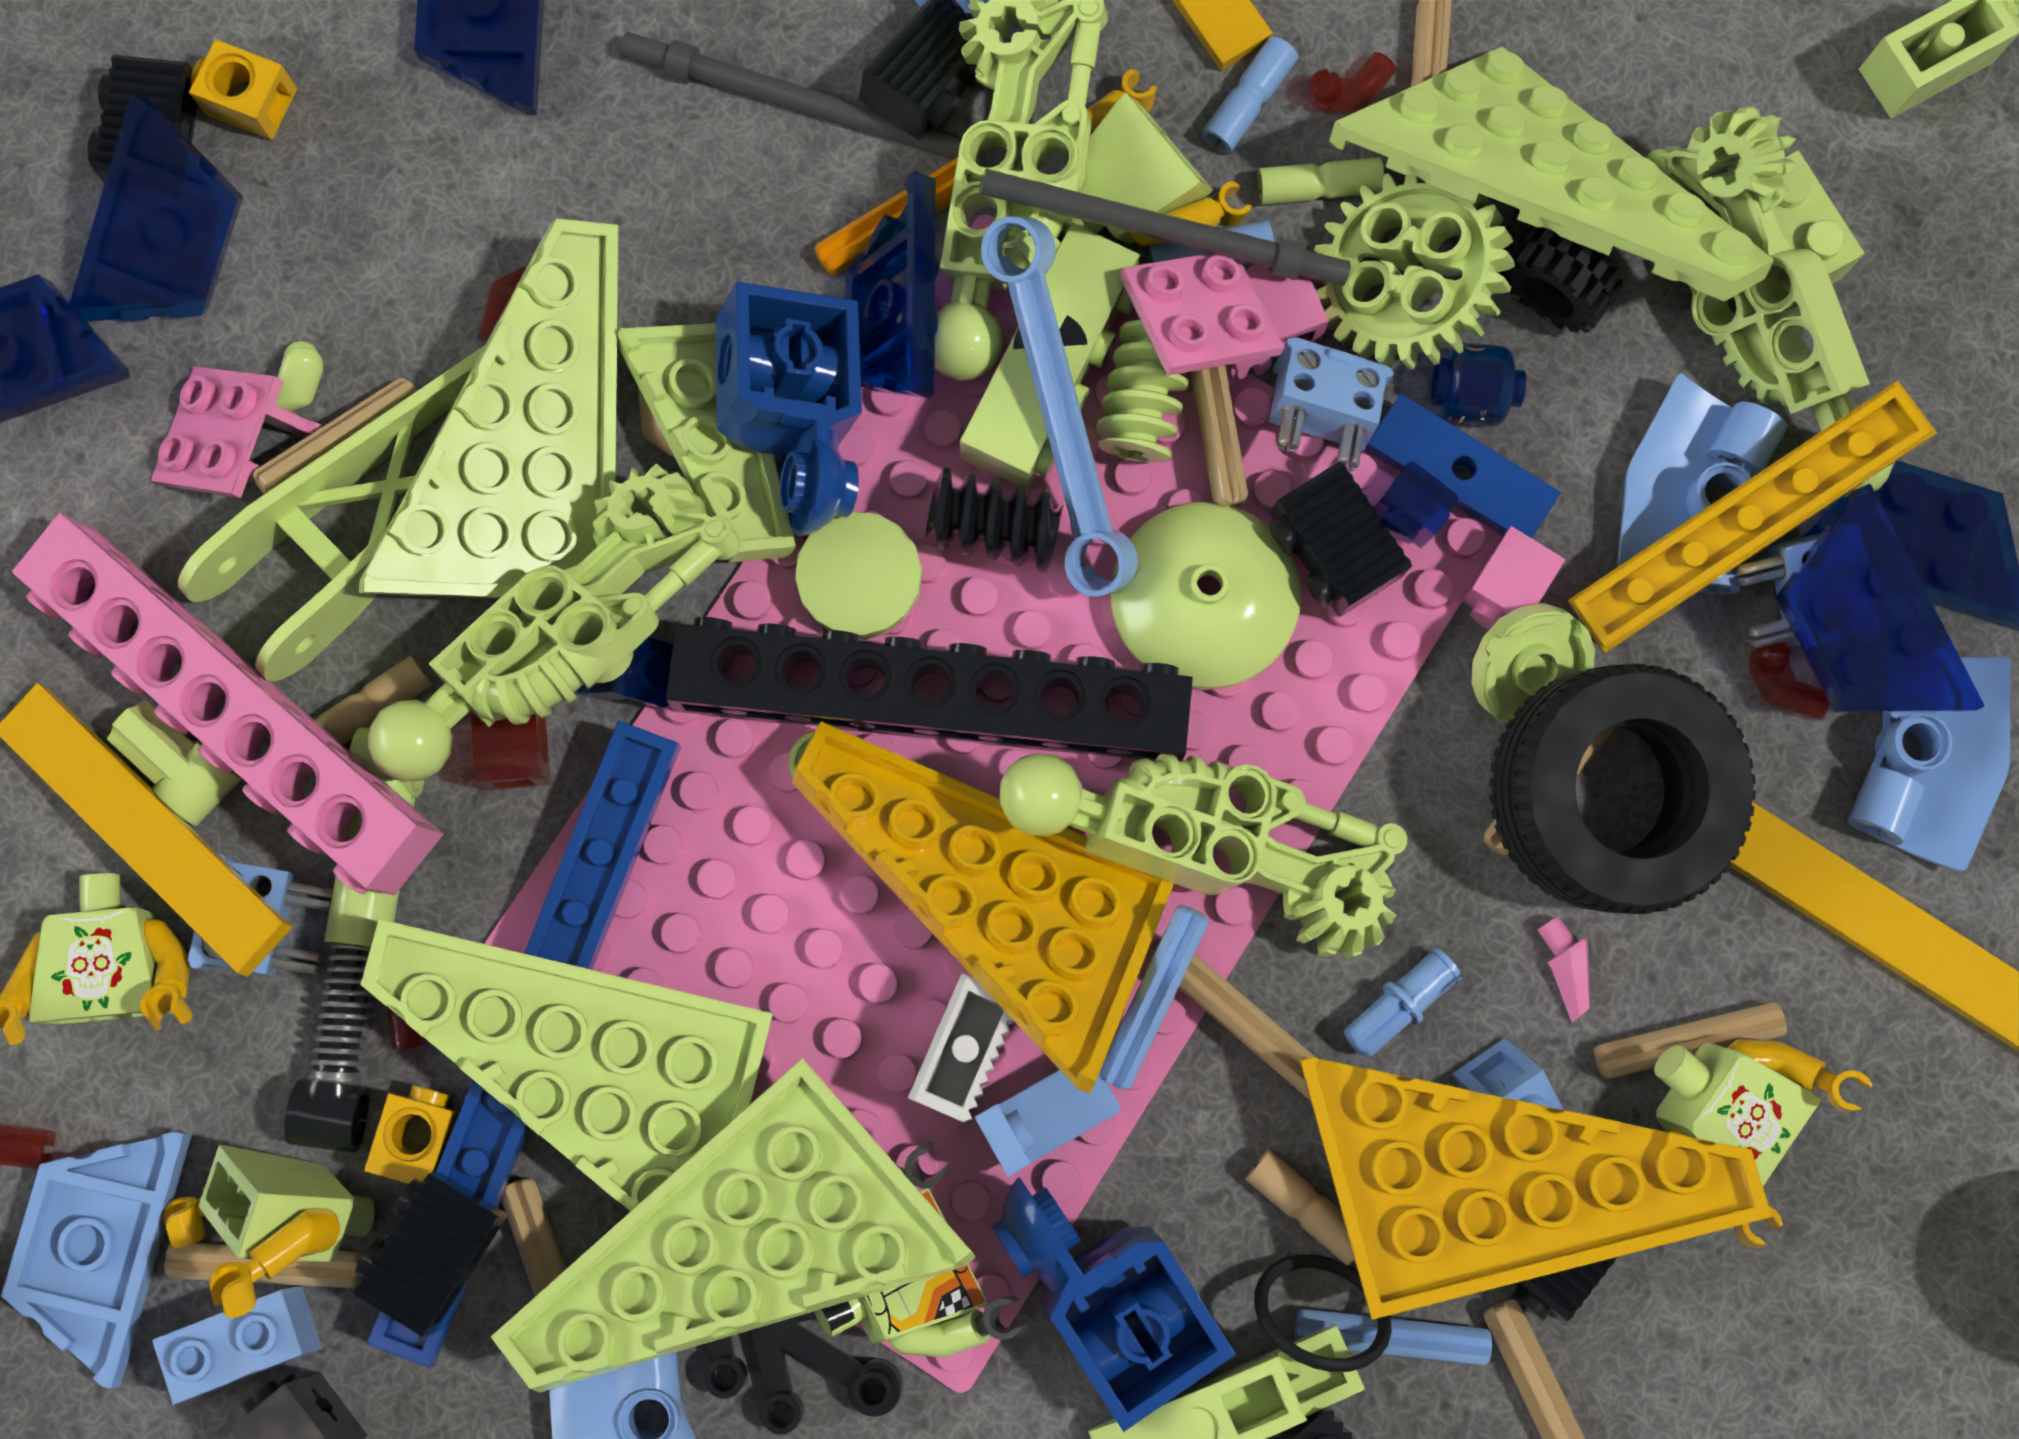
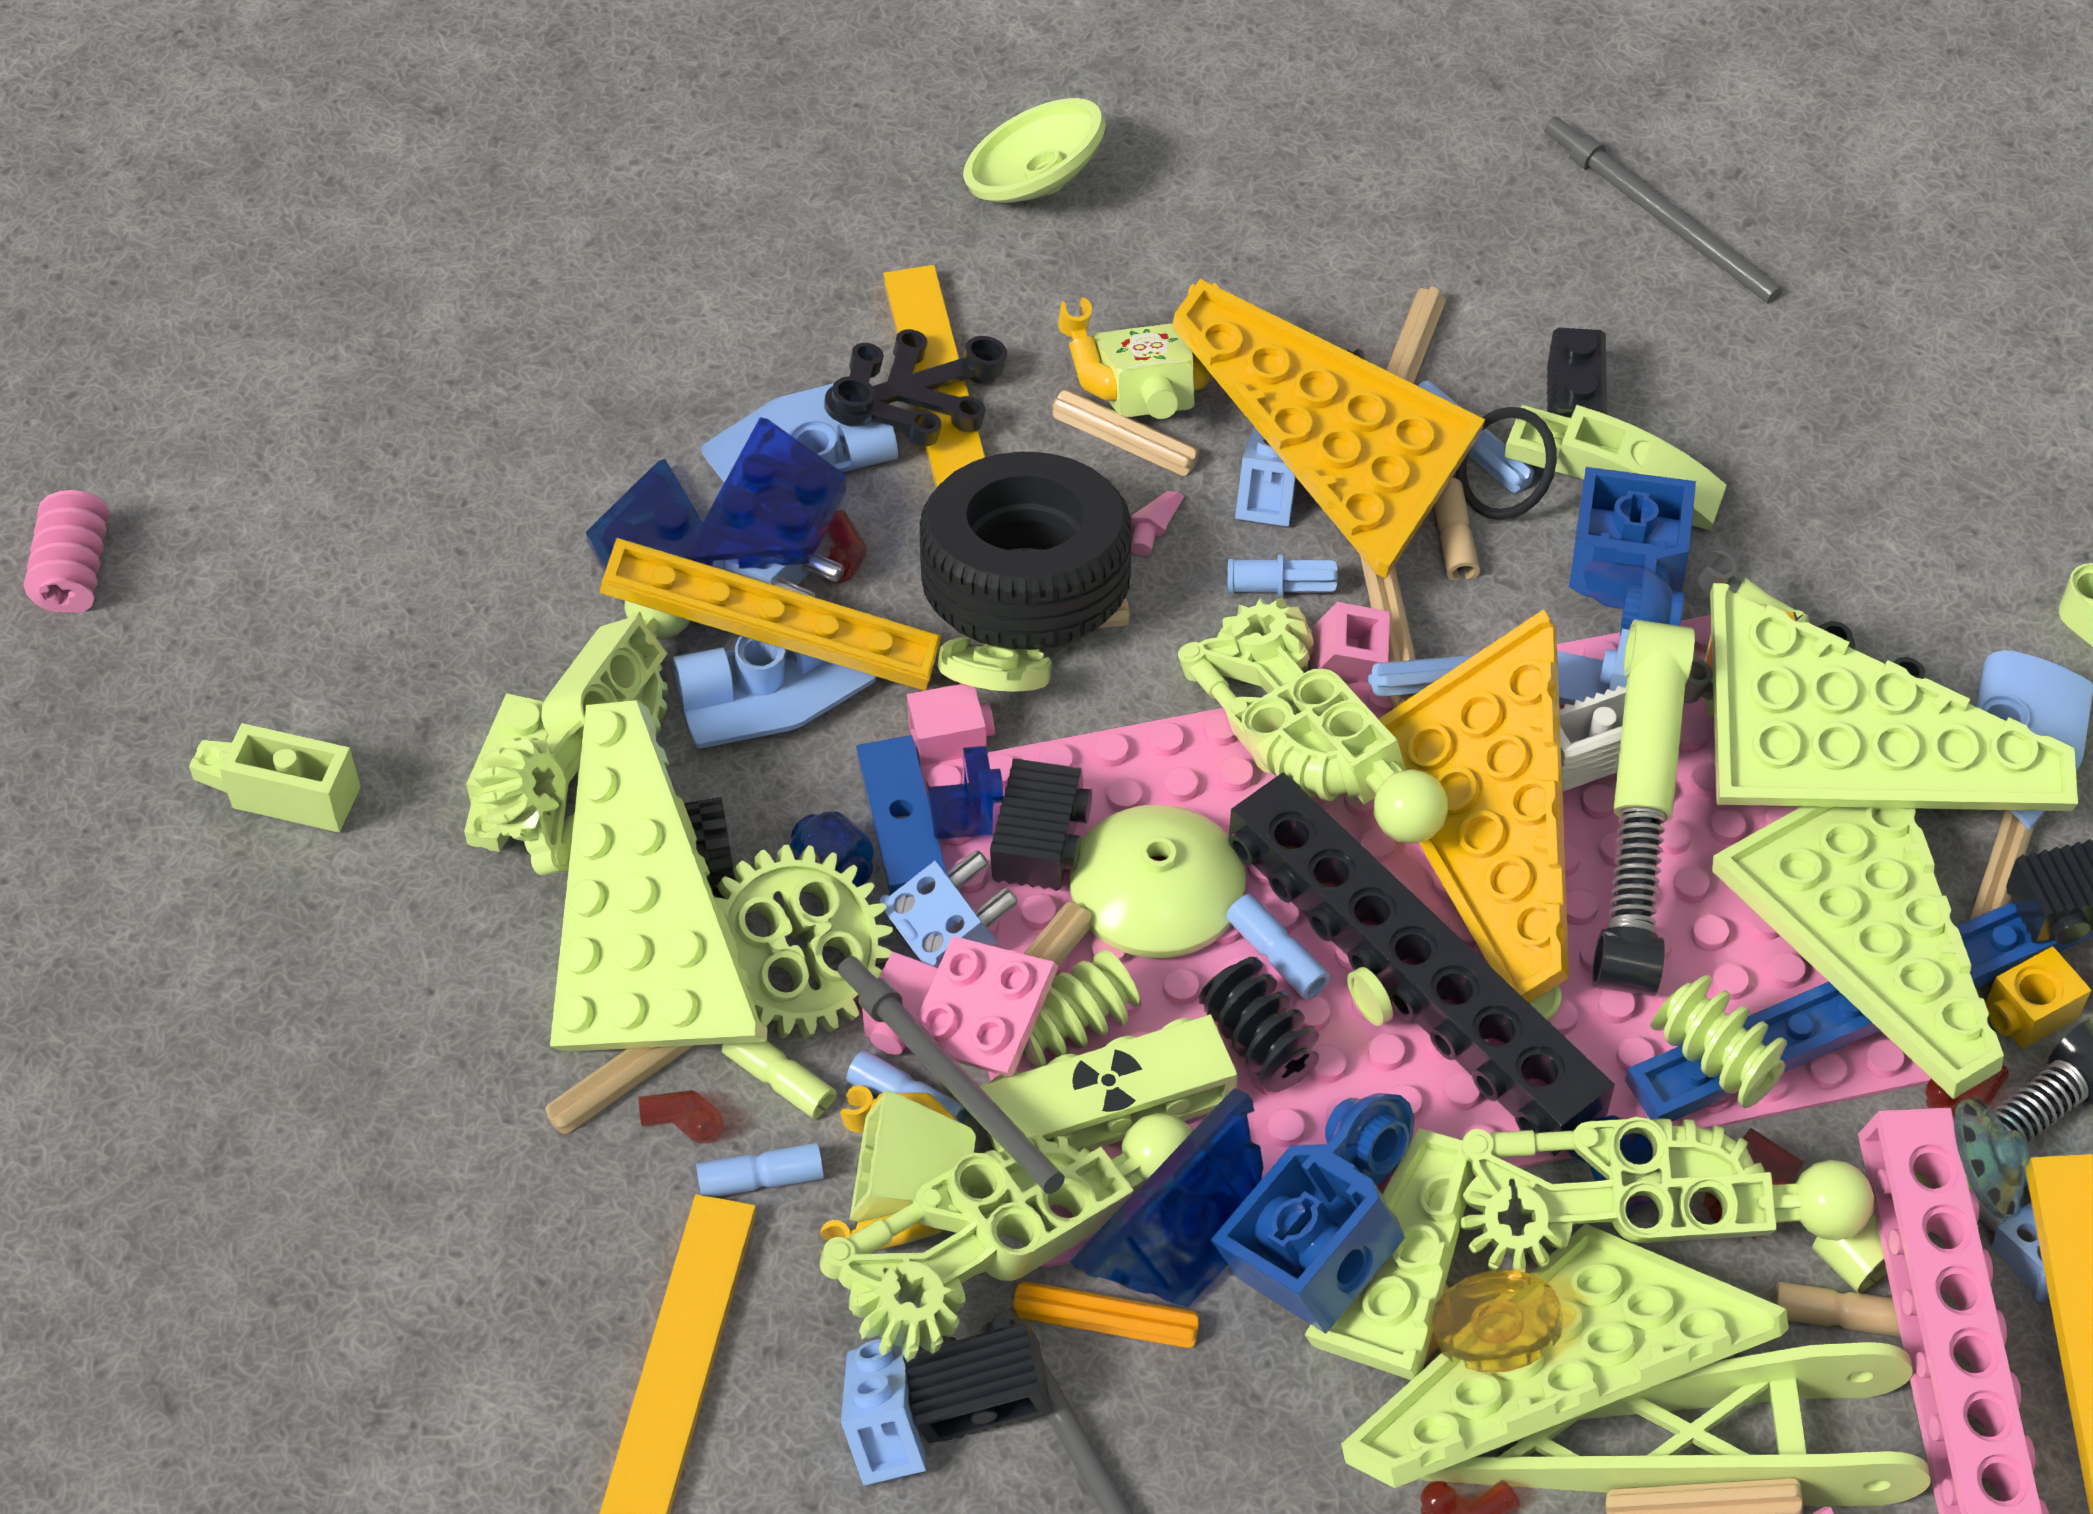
camera: 135 degrees left, 25 degrees down
(171, 762) = (2038, 1363): yellowish green piece -> none
(321, 901) = (1991, 1157): none -> clear light blue dish
(591, 424) = (1497, 1320): none -> clear yellow tile
(609, 813) = (1721, 1041): none -> yellowish green piece
(859, 575) = (1392, 1062): yellowish green tile -> none
(934, 626) = (1370, 996): none -> yellowish green piece
(938, 1101) = (1656, 669): none -> piece
(1041, 613) = (1283, 952): none -> light blue piece
(1059, 405) = (1144, 1030): light blue piece -> none
(1266, 965) = (1351, 641): none -> bright pink brick
(1909, 881) = (857, 402): none -> black plant

